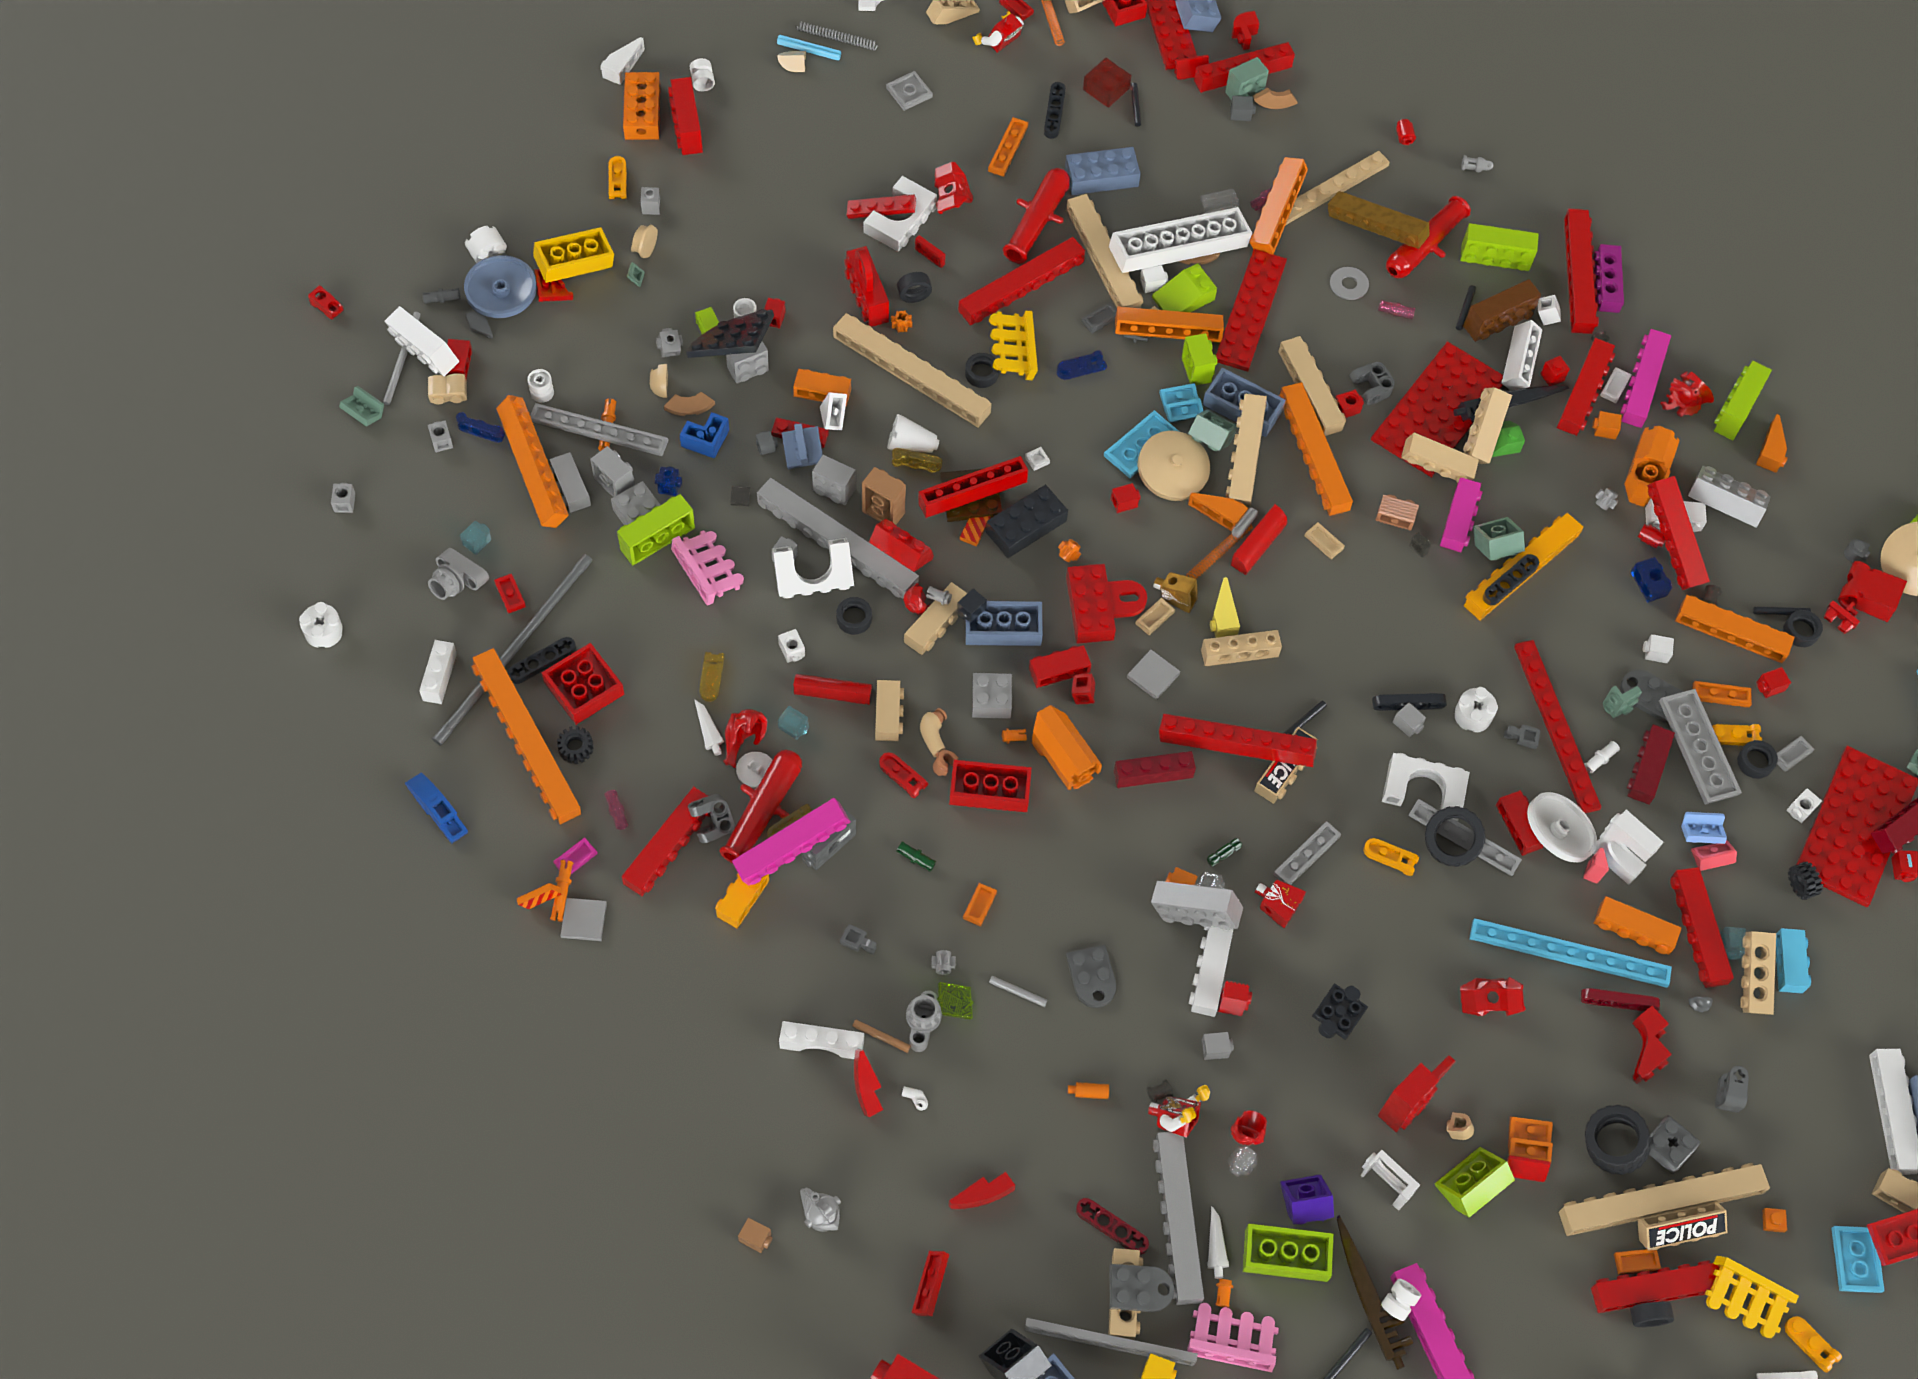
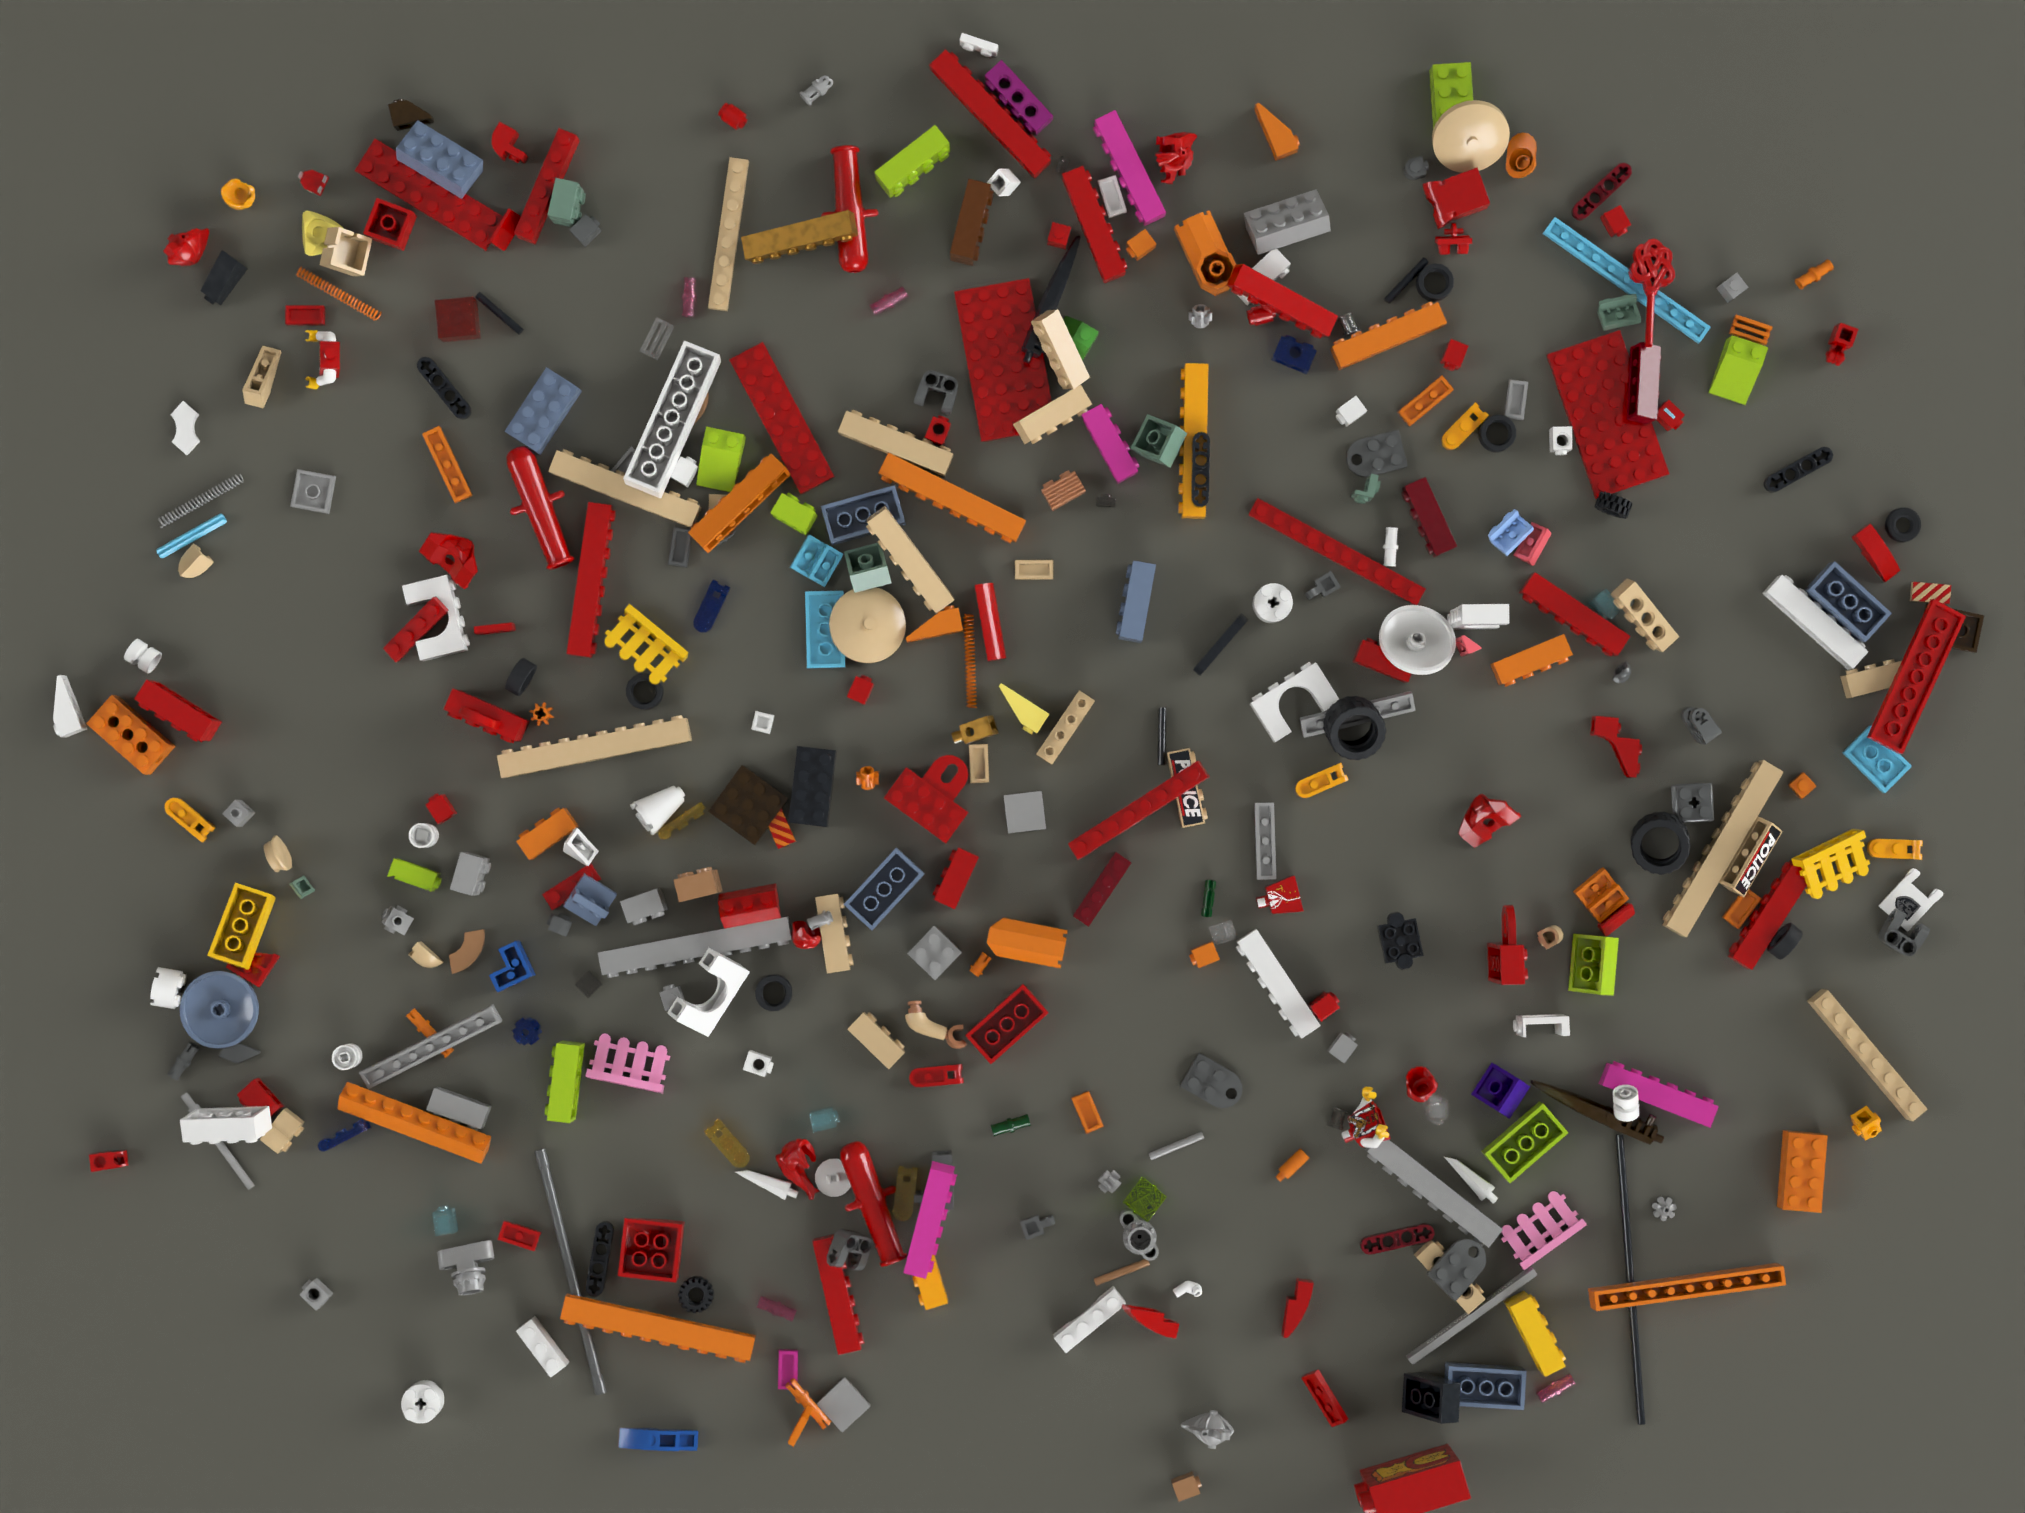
camera: 45 degrees left, 25 degrees up
(363, 406) = (241, 1212): sand green bracket -> none
(443, 441) = (332, 1172): light grey brick -> none
(612, 472) = (483, 1071): light grey brick -> none
(633, 503) = (530, 1076): light grey brick -> none
(733, 336) = (445, 873): black plate -> none
(832, 689) = (820, 1063): red brick -> none
(971, 605) = (854, 909): black brick -> none
(973, 486) = (750, 807): red brick -> none
(1083, 688) = (986, 882): red brick -> none
(1197, 905) = (1237, 970): light grey brick -> none
(1223, 1295) = (1508, 1207): orange pin -> none
(1244, 522) = (967, 623): light grey axle -> none
(1275, 100) = (601, 195): medium nougat tile -> none
(1279, 205) = (710, 302): orange brick -> none
(1351, 272) = (819, 301): light grey gear -> none
(1377, 616) = (1136, 602): none -> sand blue brick
(1409, 720) = (1235, 659): light grey brick -> none
(1465, 308) = (937, 242): black bar -> none
(1522, 356) = (1023, 249): white brick -> none
(1570, 953) = (1505, 728): medium azure plate -> none
(1612, 229) = (973, 43): none -> white plate
(1619, 999) = (1569, 729): dark red beam -> none
(1700, 746) = (1450, 467): light grey plate -> none
(1741, 399) = (1220, 117): lime brick -> none
(1792, 961) = (1655, 576): medium azure brick -> none

